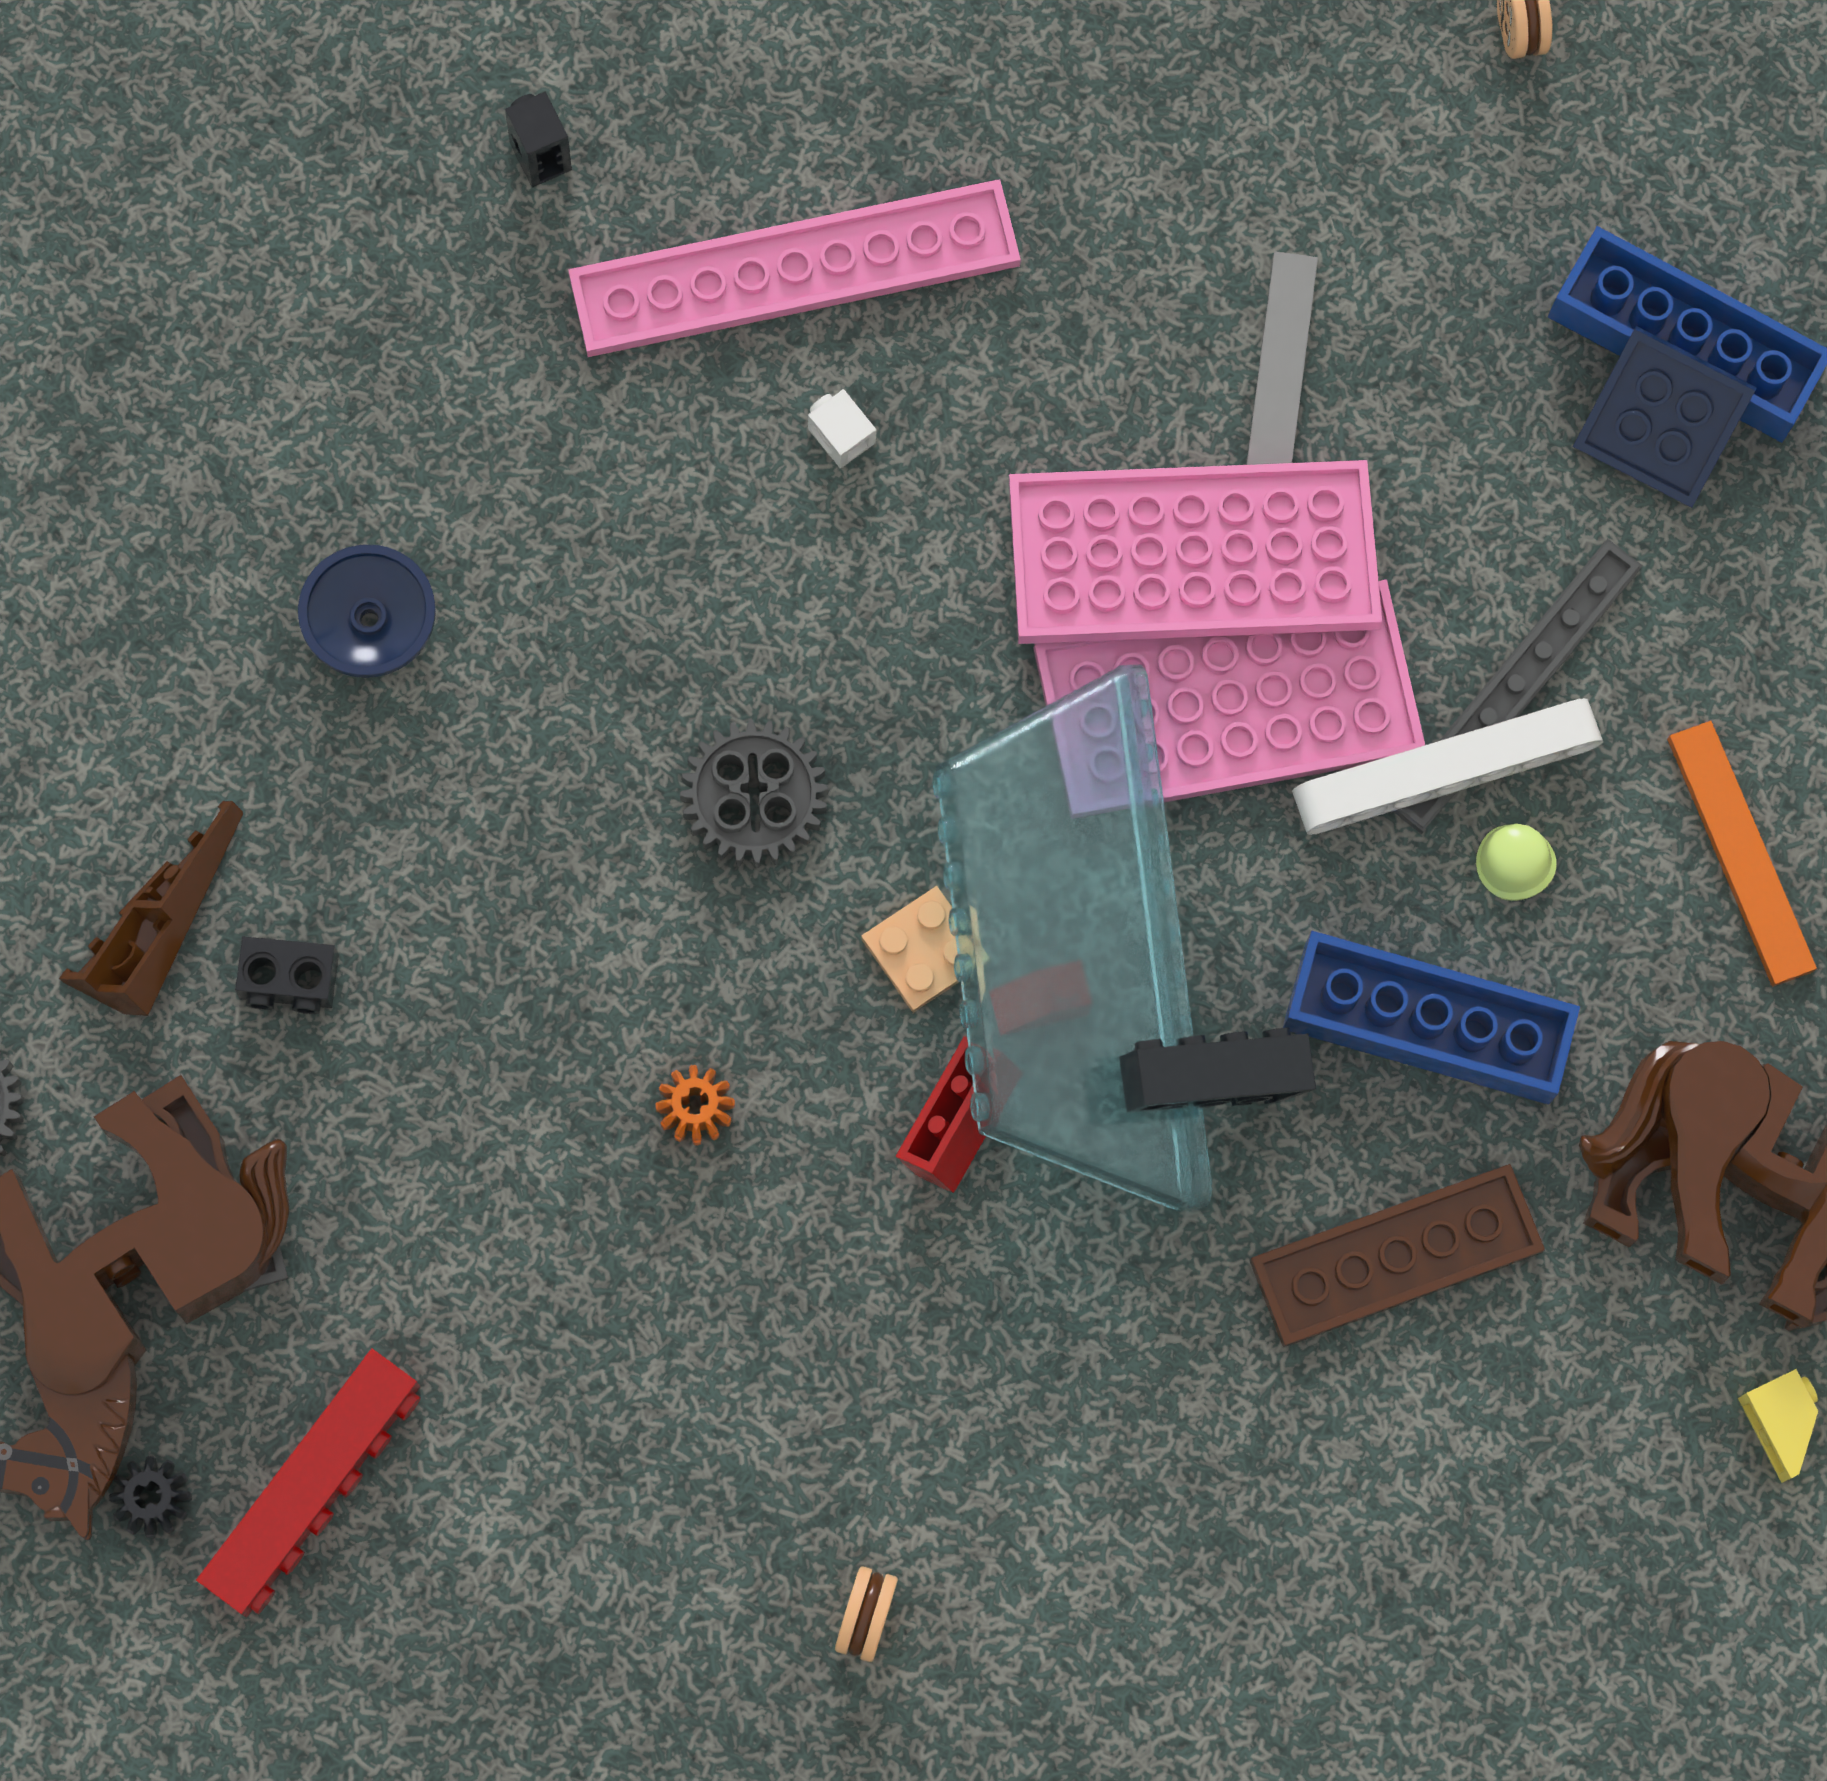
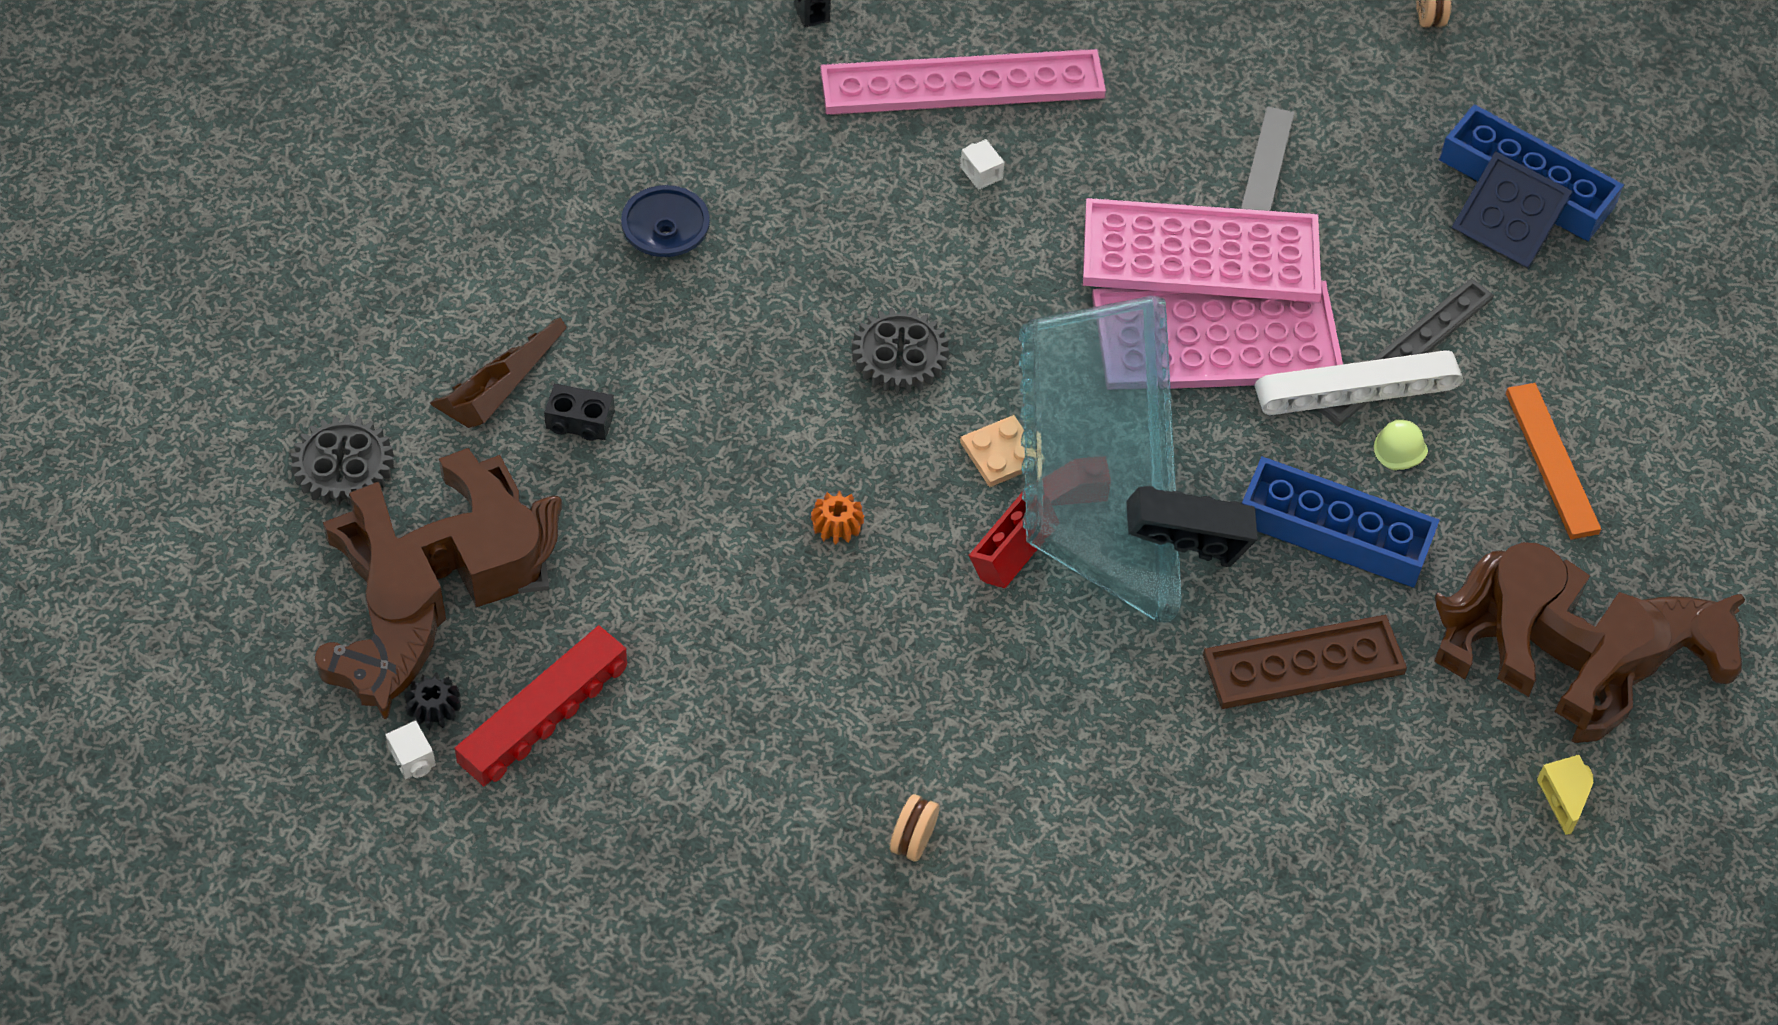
camera: 10 degrees right, 20 degrees down
(133, 1584) = (411, 750): none -> white brick

